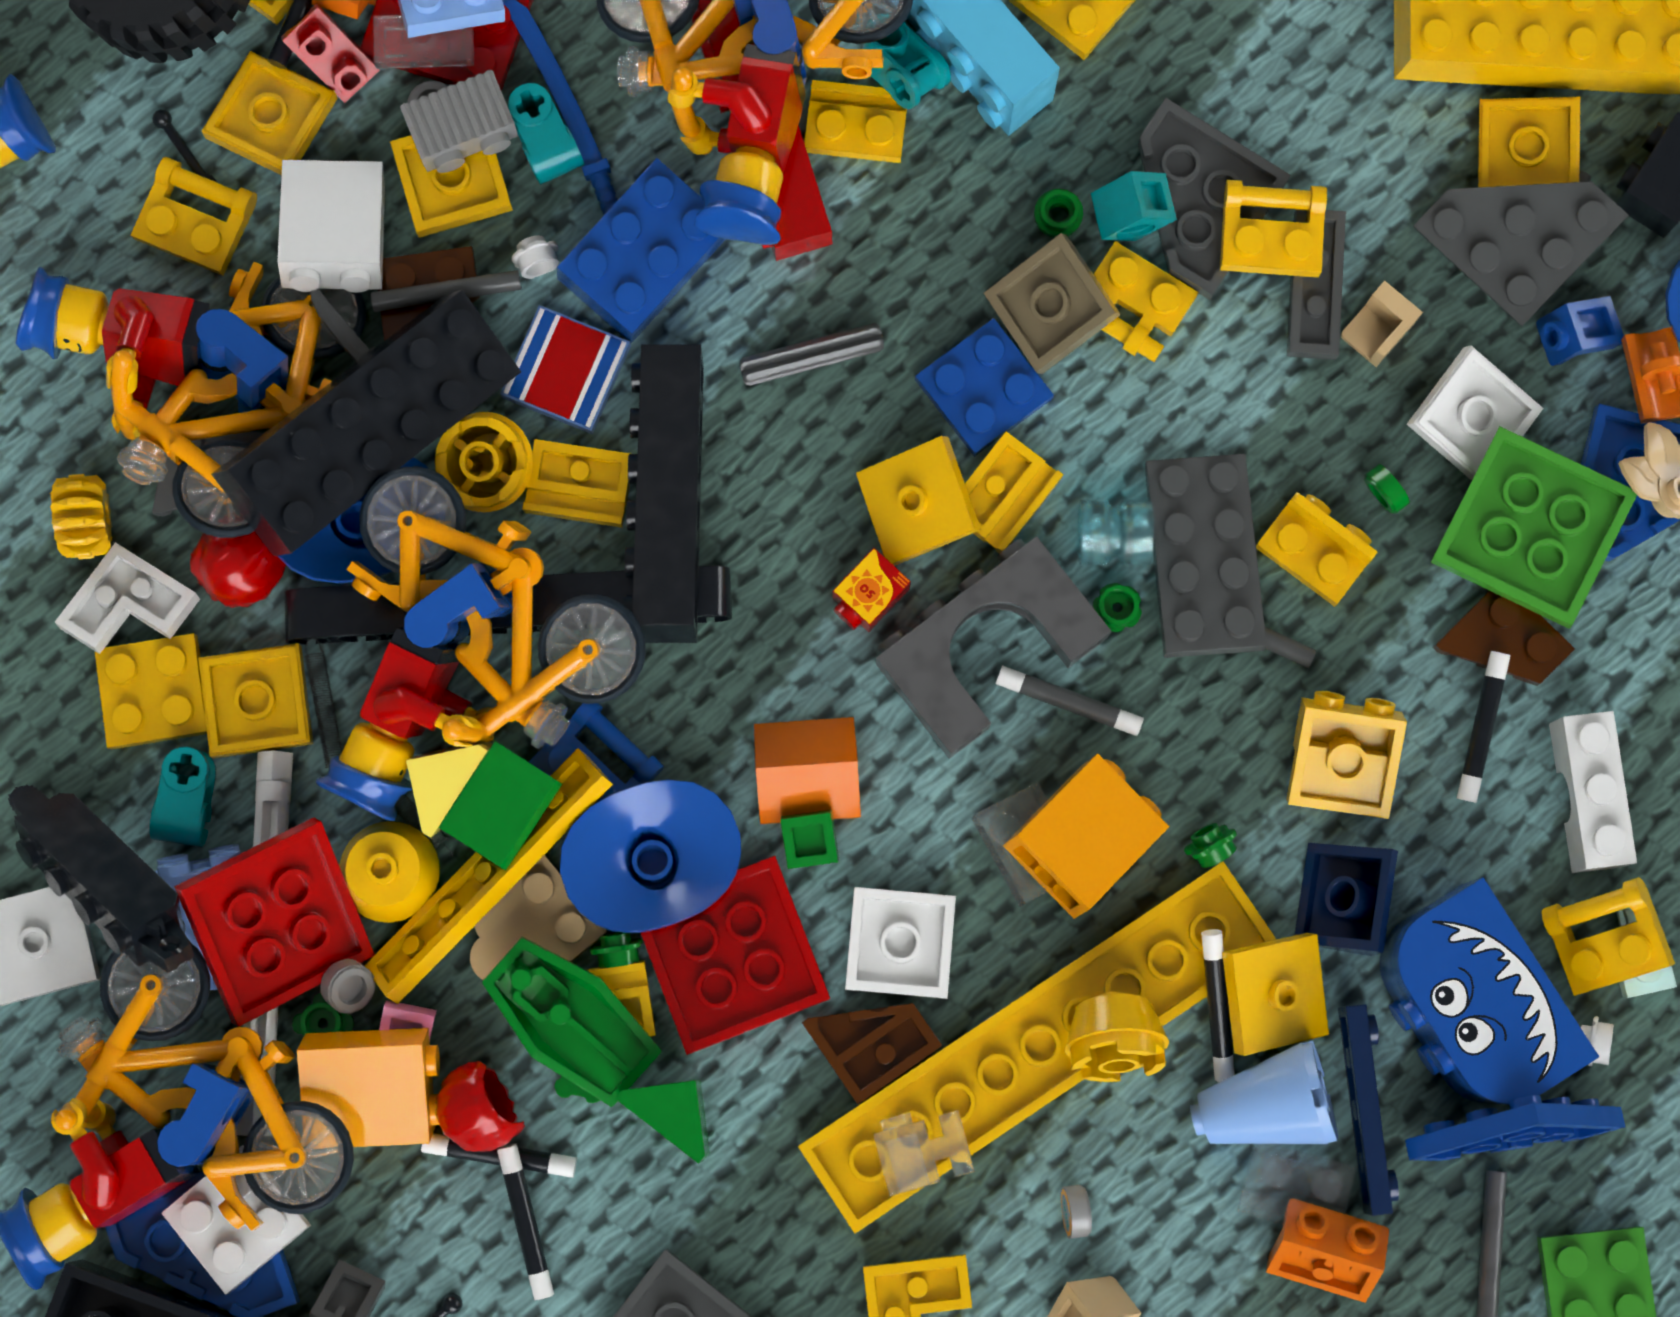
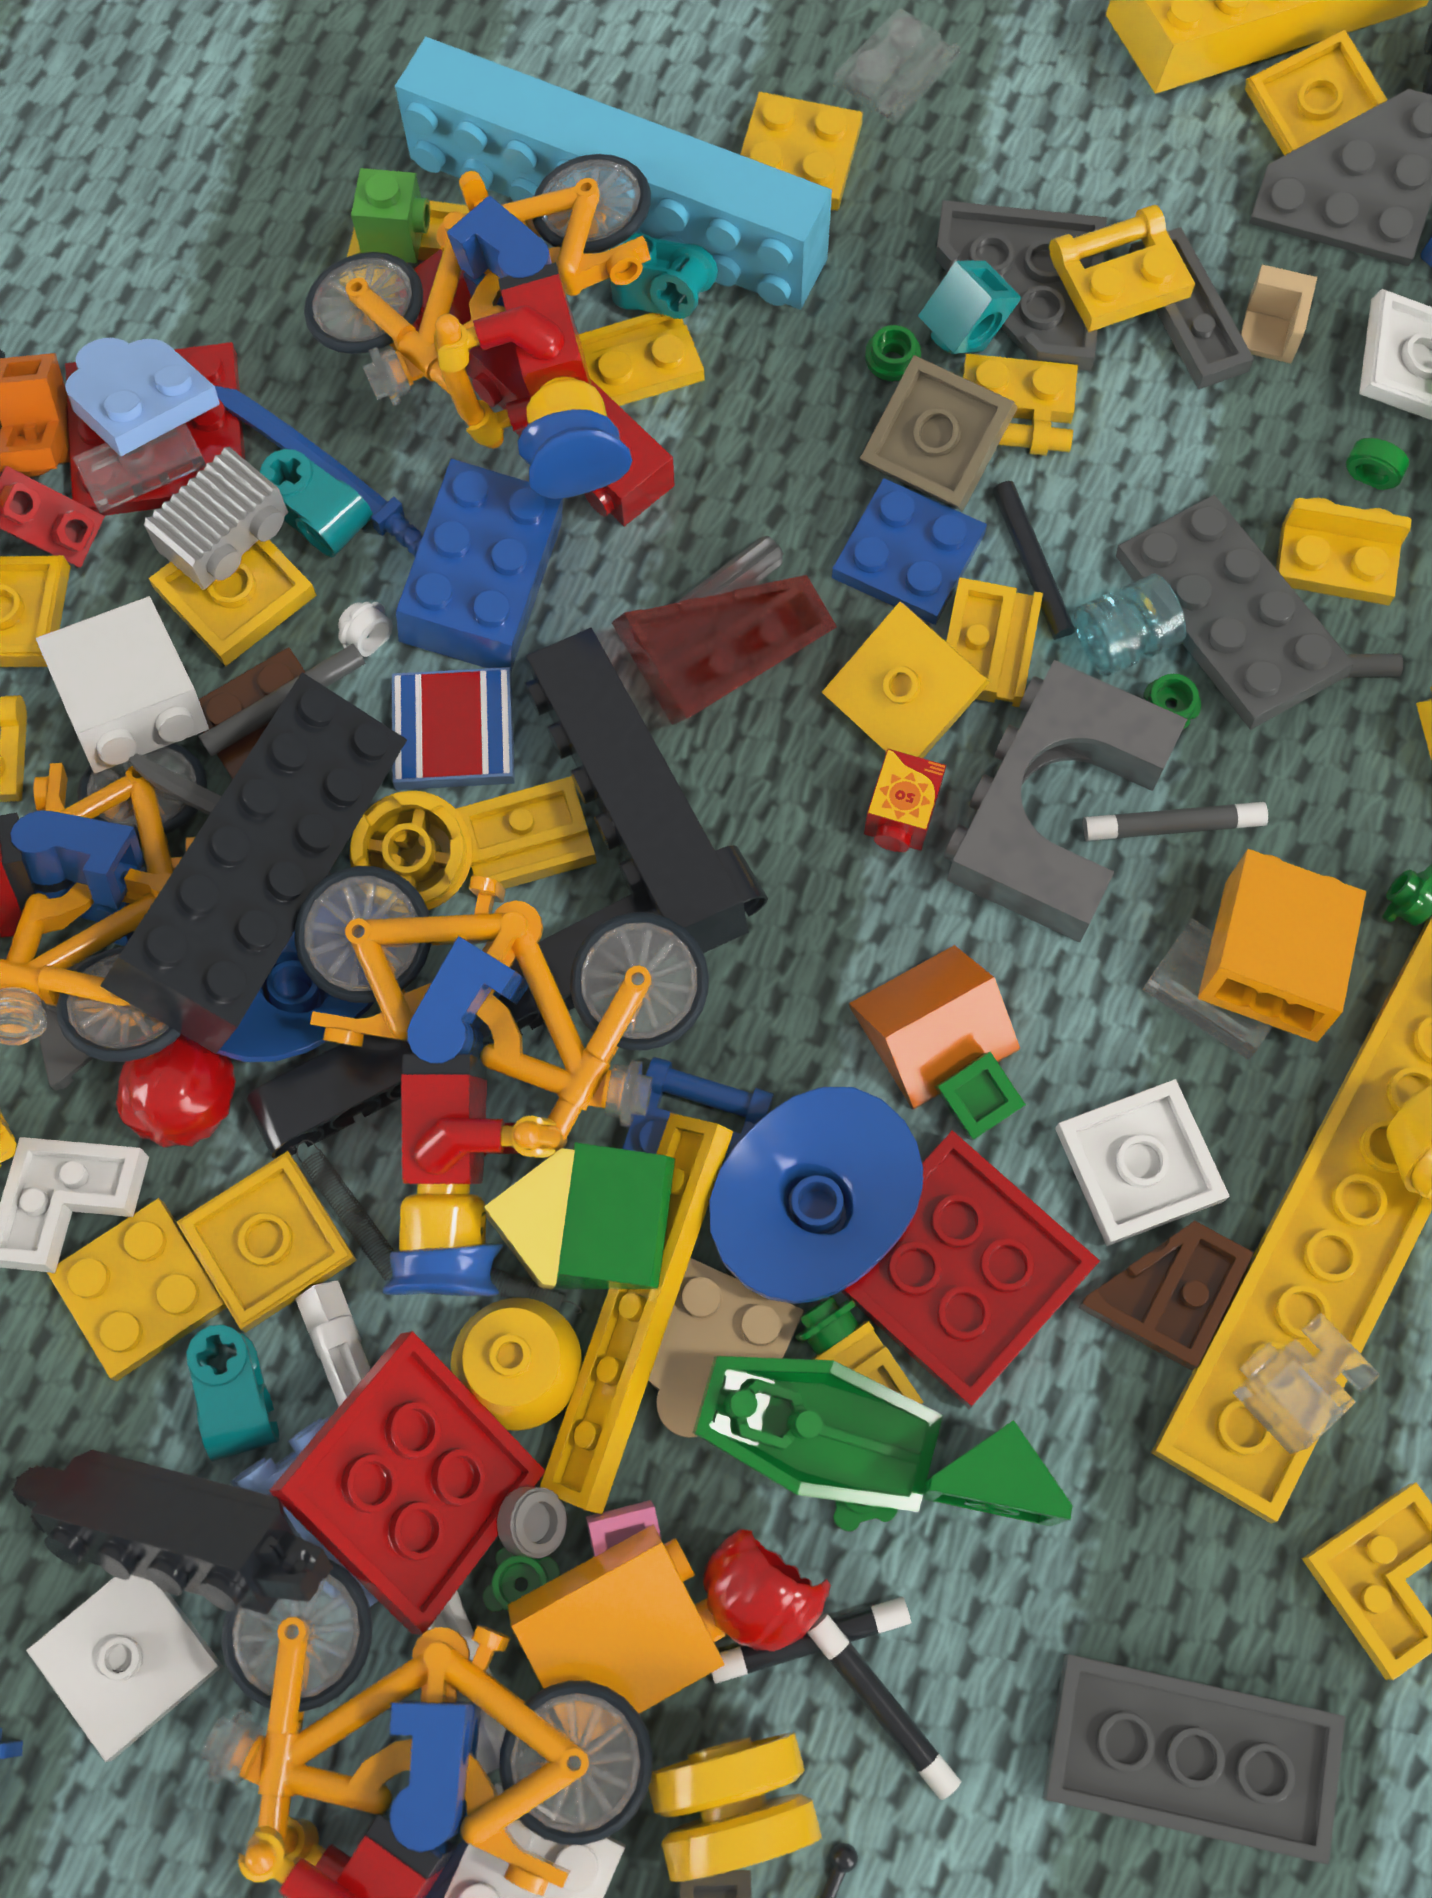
camera: 25 degrees left, 10 degrees down
(389, 1242) = (737, 1819): none -> yellow wheel
(795, 402) = (720, 641): none -> clear red wedge
(1077, 439) = (1033, 559): none -> black bar

